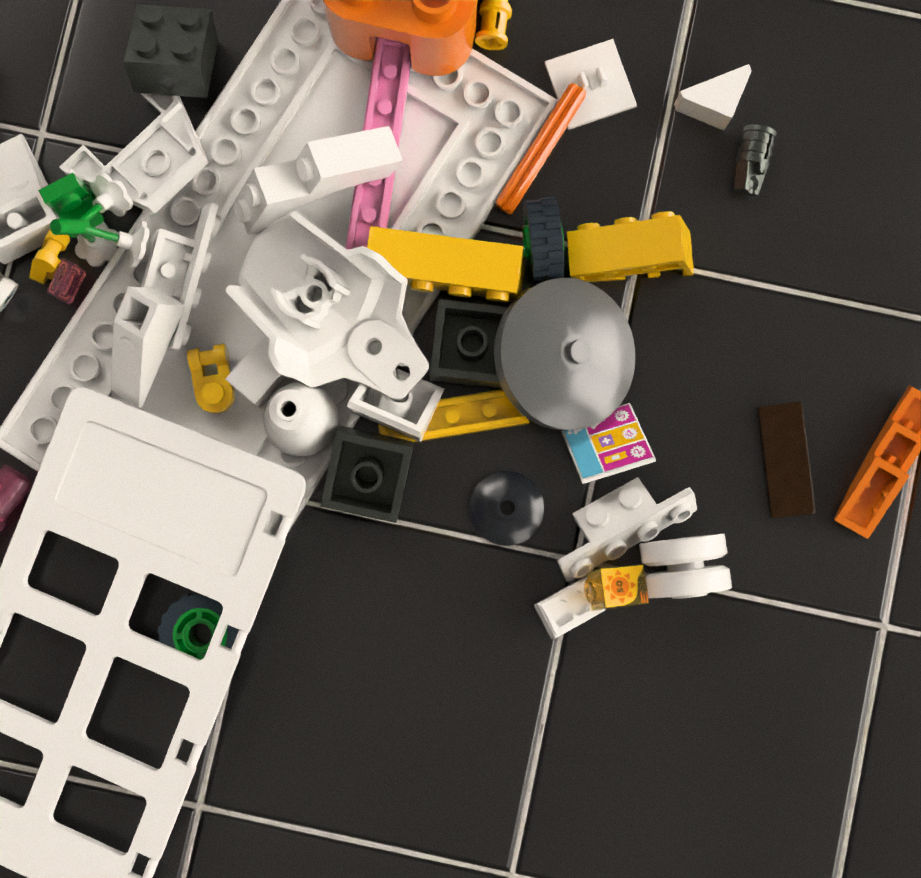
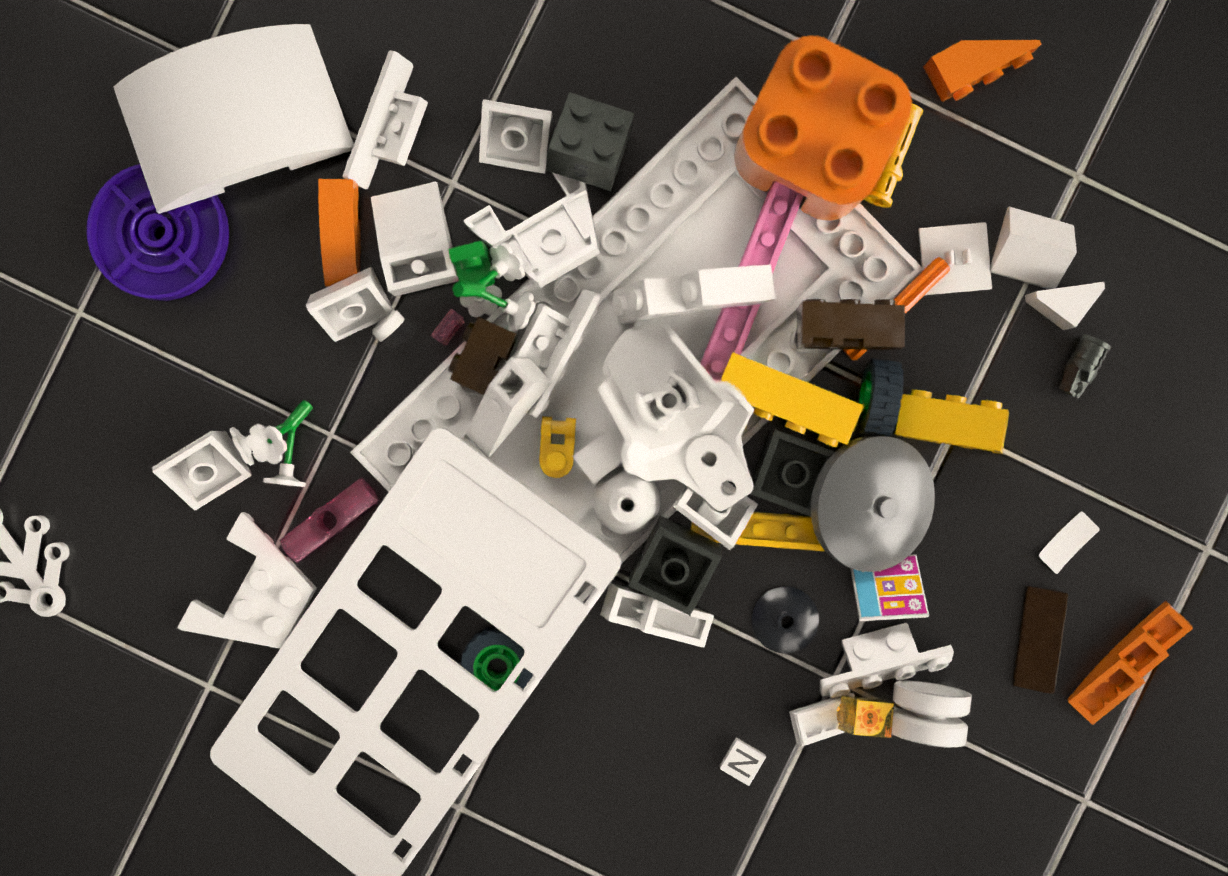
camera: 10 degrees right, 5 degrees up
(46, 259) = (437, 303): yellow plate -> none
(90, 64) = (515, 136): none -> white slope
(103, 293) = (481, 355): none -> dark brown brick
(364, 536) = (651, 616): none -> white slope
(490, 172) = (850, 325): none -> dark brown wedge
(498, 675) = (742, 761): none -> white tile
(668, 53) = (1033, 249): none -> white slope
(789, 349) = (1068, 542): none -> white sticker

